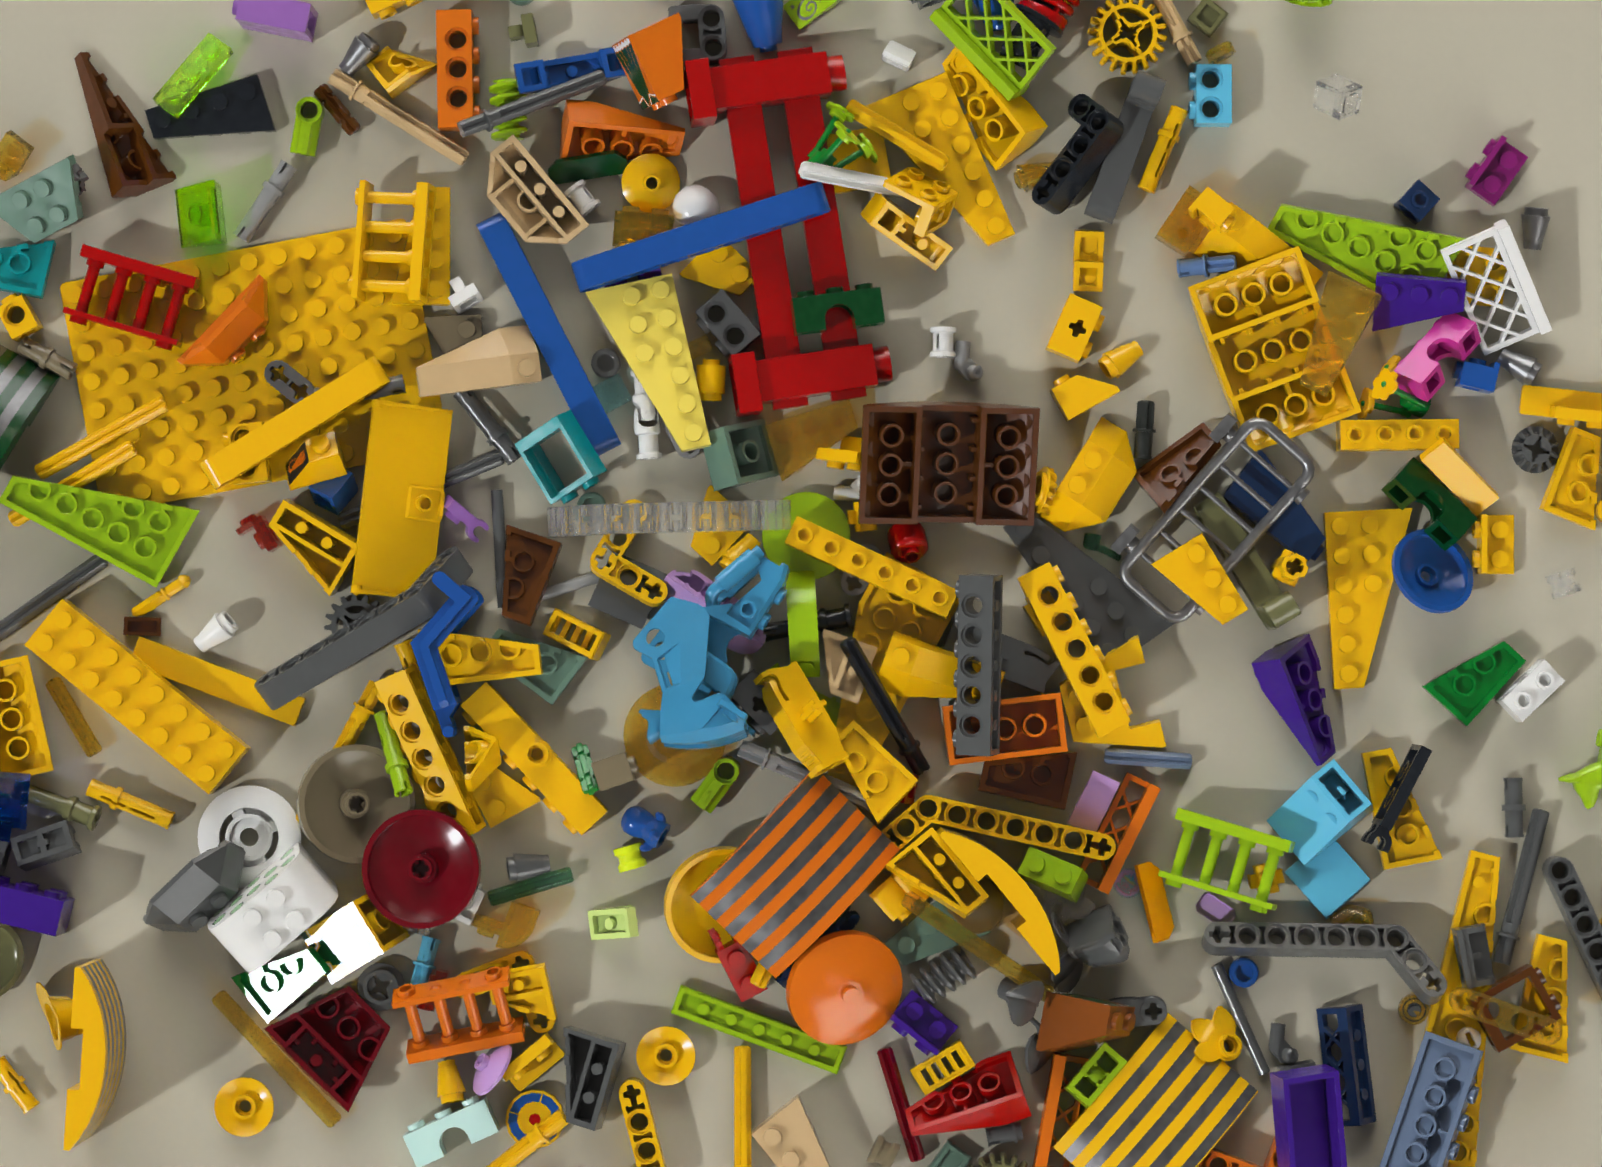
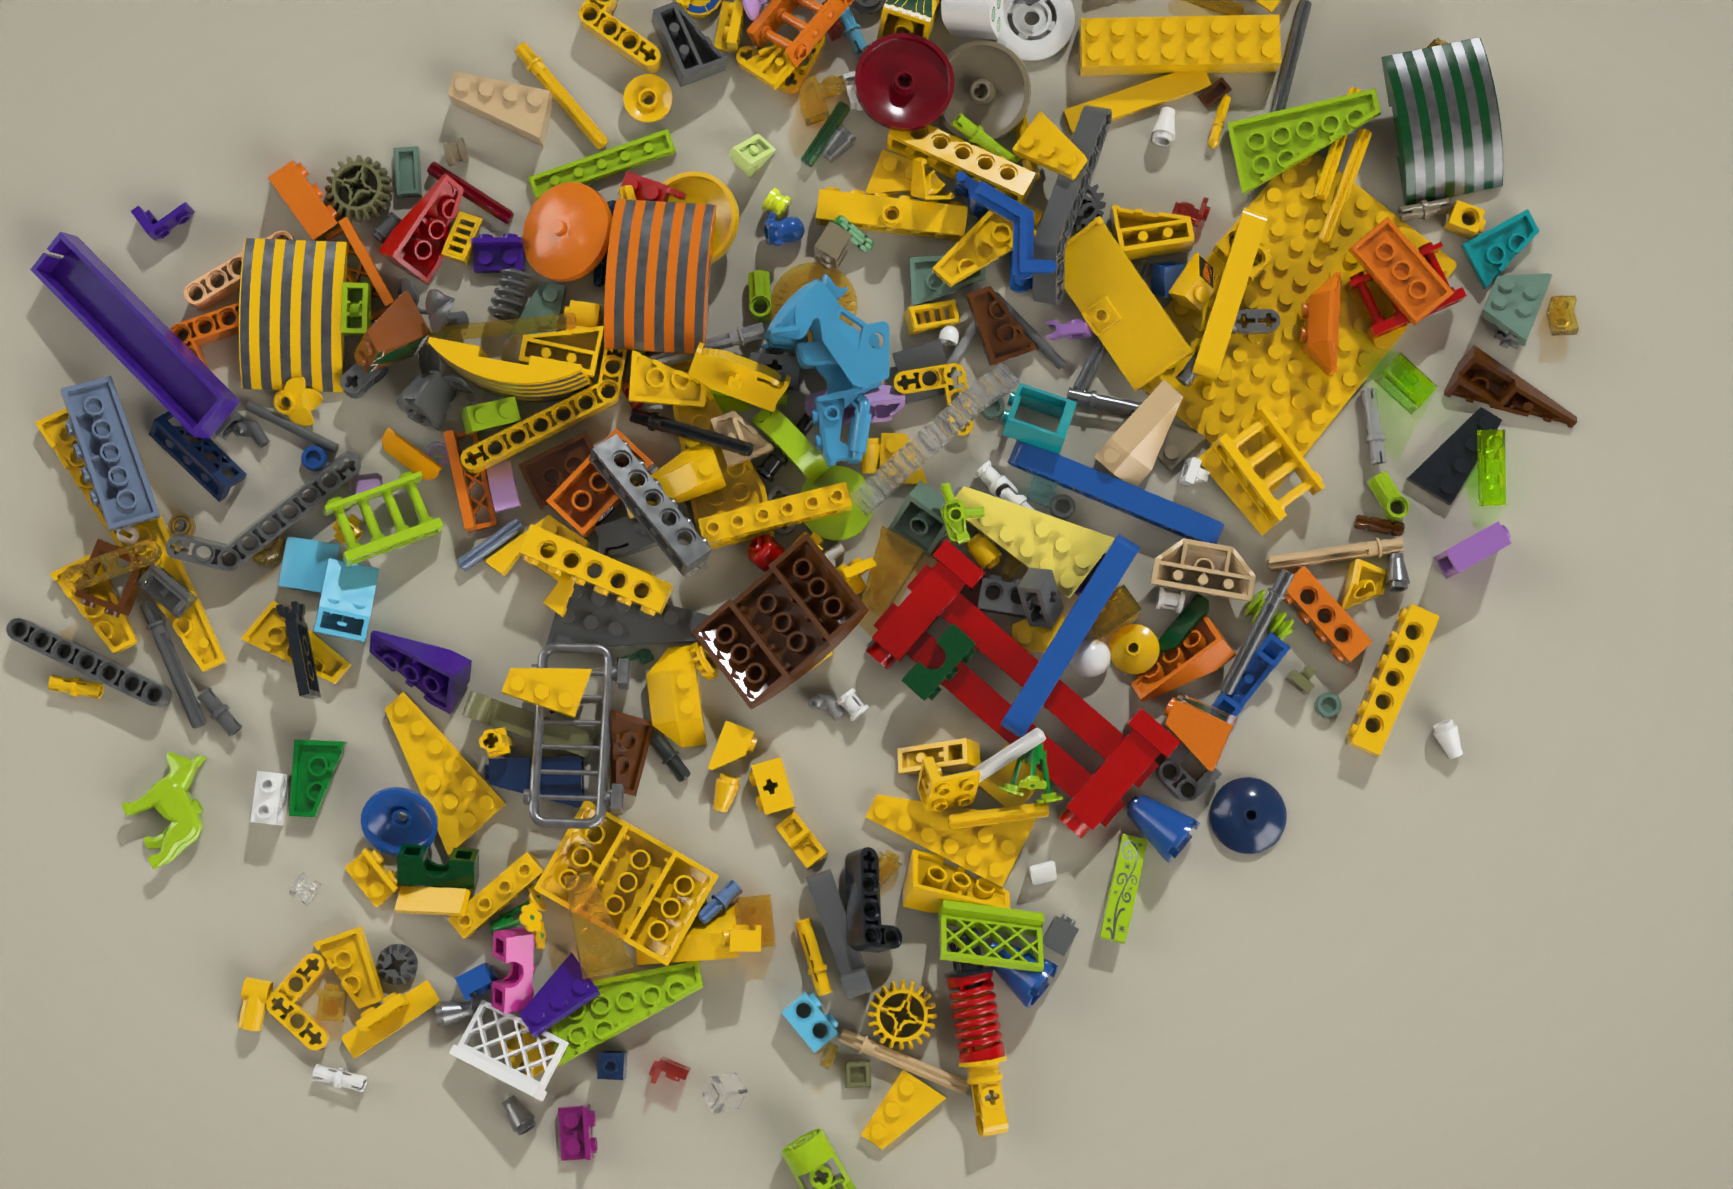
camera: 145 degrees right, 5 degrees down
(123, 315) = (1401, 271): none -> orange tile
(341, 694) = (1050, 148): none -> yellow wing
(575, 603) = (949, 336): none -> white hinge
(698, 293) = (1040, 597): none -> dark grey brick
(712, 429) = (955, 515): none -> lime piece
(1366, 155) = (673, 1069): none -> clear red bracket

